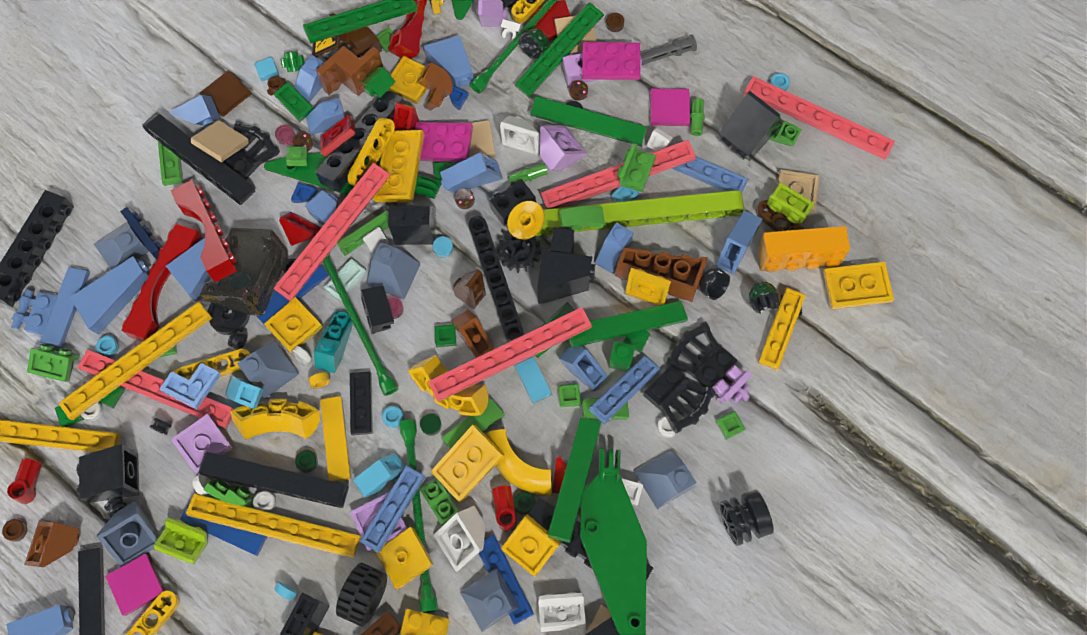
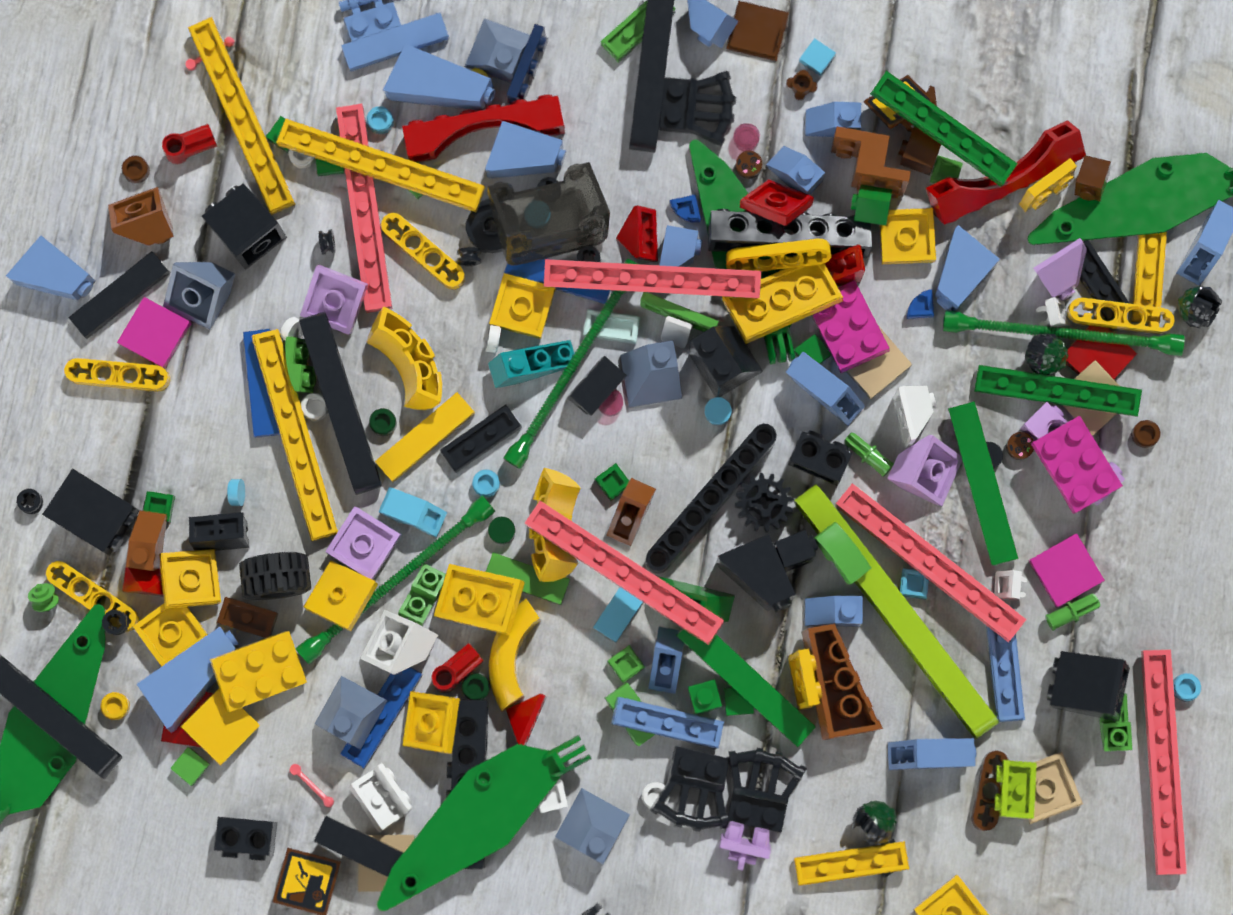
camera: 60 degrees right, 10 degrees up
(51, 362) = (326, 75): bright green bracket -> none
(114, 505) = (218, 256): black bush -> none
(182, 541) = (223, 350): lime bracket -> none
(191, 391) = (383, 252): light blue plate -> none
(215, 256) = (541, 172): arch -> none
(219, 141) = (686, 73): tan tile -> none
(244, 392) = (412, 305): medium azure slope -> none
(268, 368) = (456, 313): sand blue slope -> none
(292, 61) = (843, 82): green gear -> none
(293, 102) = (792, 119): green plate -> none
(296, 156) = (725, 171): bright green plate -> none
(319, 380) = (477, 377): yellow tile -> none
(392, 509) = (383, 550): medium blue tile -> none
(438, 82) = (920, 274): dark orange brick -> none
(464, 198) = (793, 398): reddish brown tile -> none
(470, 288) = (679, 475): reddish brown slope -> none
(521, 215) = (797, 480): yellow dish -> none
(574, 480) = (527, 728): green tile -> none
(636, 168) = (947, 579): bright green bracket -> none
(676, 48) = (1154, 532): dark grey pin -> none
(714, 283) = (859, 753): black hair -> none
(730, 425) = (699, 866): bright green tile -> none
(803, 249) = (964, 836): light orange brick -> none

